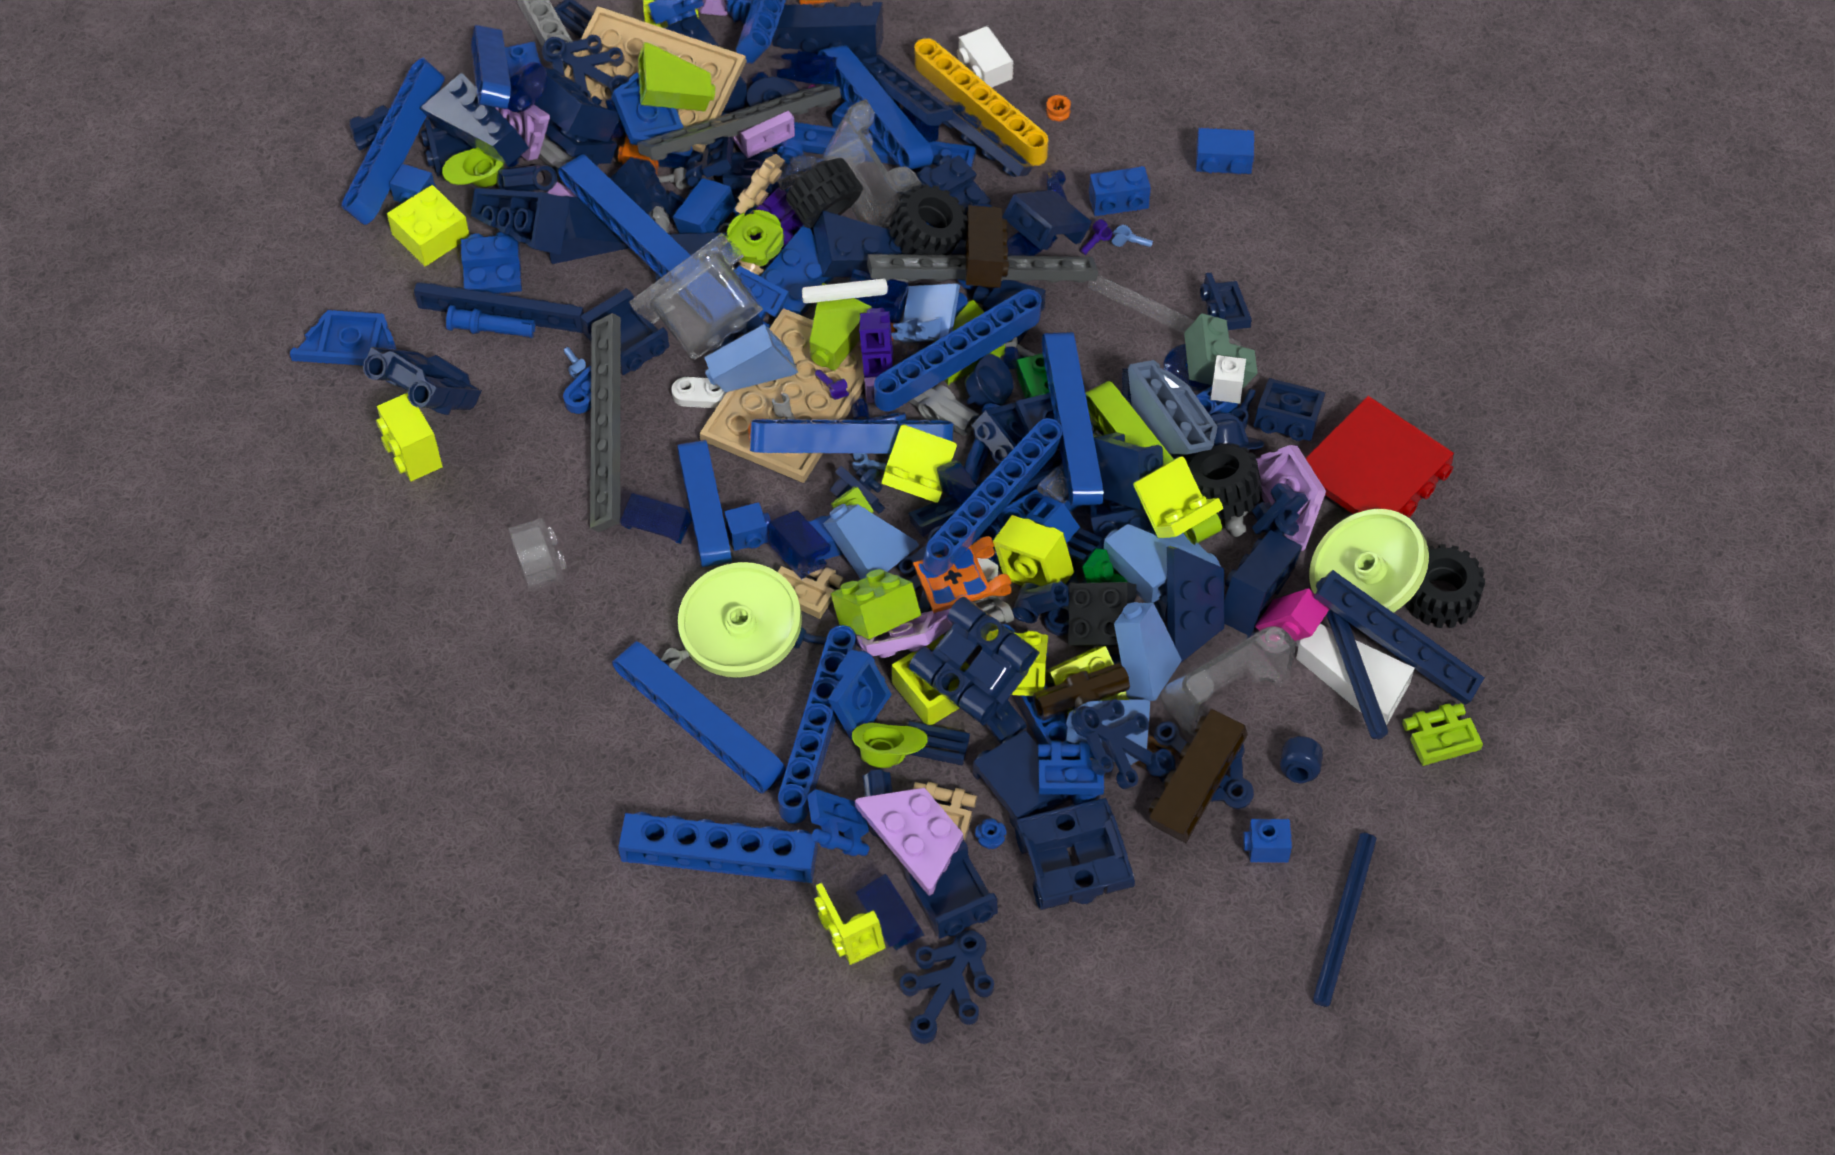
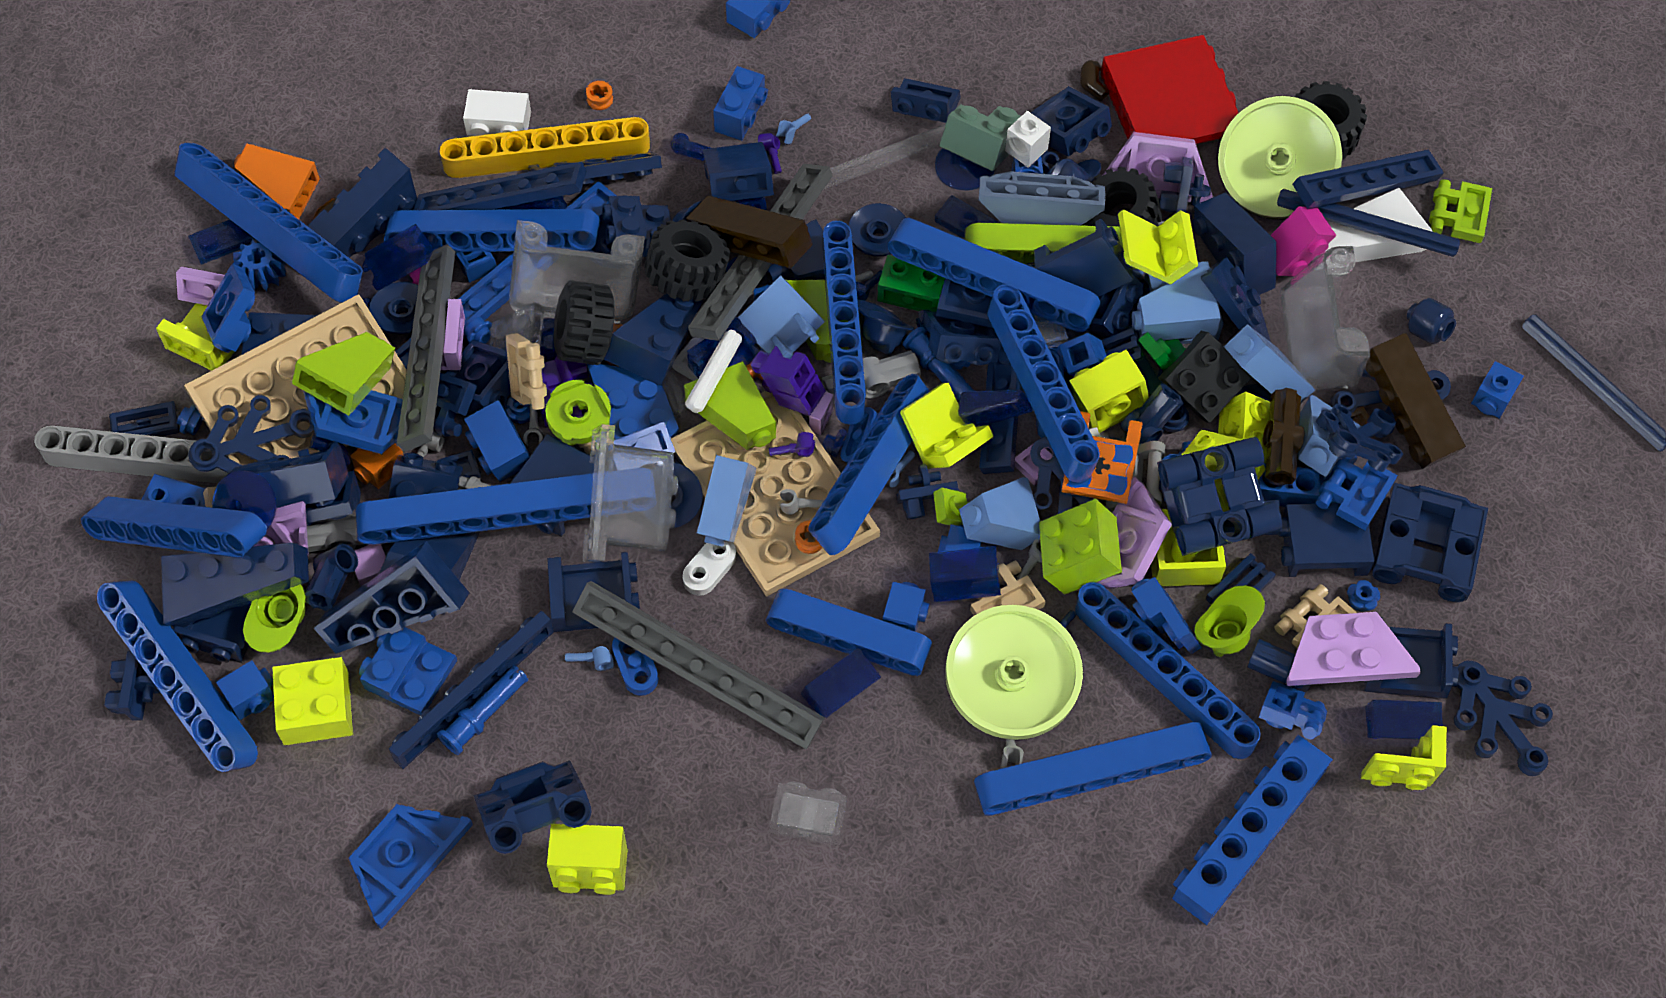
camera: 60 degrees left, 5 degrees up
(1086, 332) = (873, 220): none -> dark blue dish
(1348, 404) = (1090, 82): none -> dark brown arm

